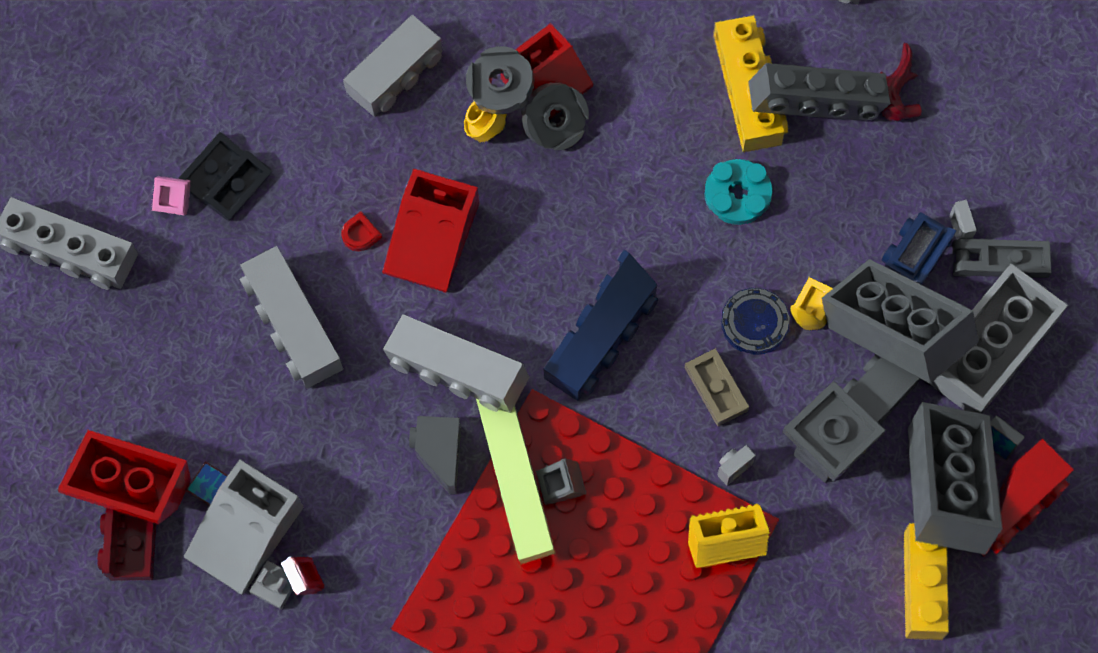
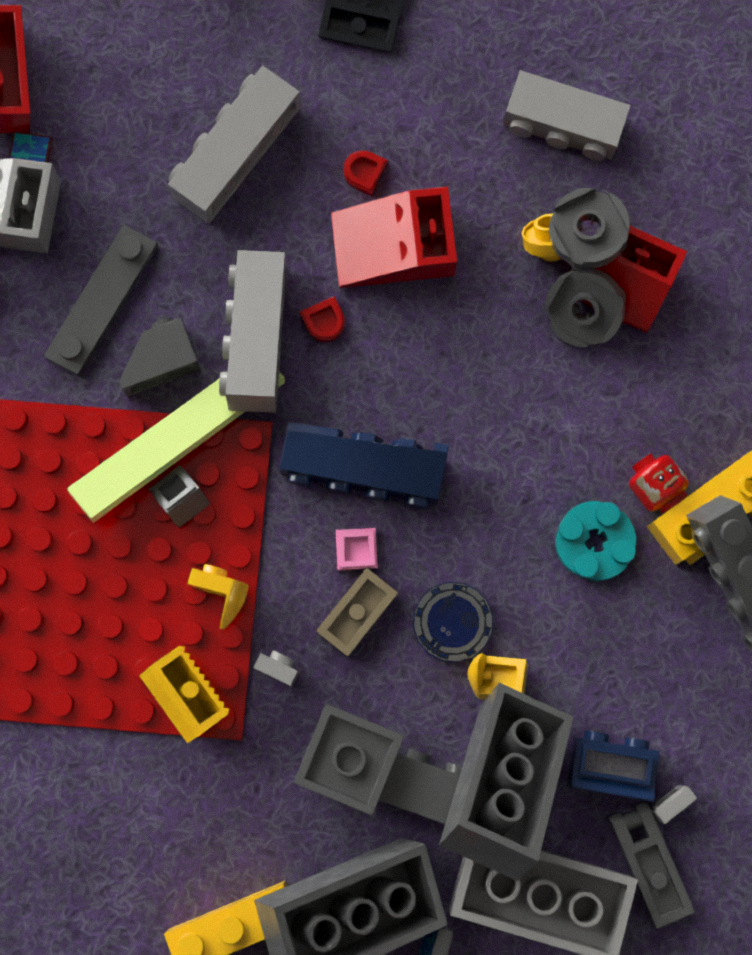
camera: 60 degrees right, 10 degrees up
(366, 480) = (101, 300): none -> dark grey plate
(467, 314) = (324, 320): none -> red tile
(647, 478) = (214, 581): none -> yellow plate
(665, 368) = (356, 549): none -> bright pink tile
(715, 125) = (658, 483): none -> red head

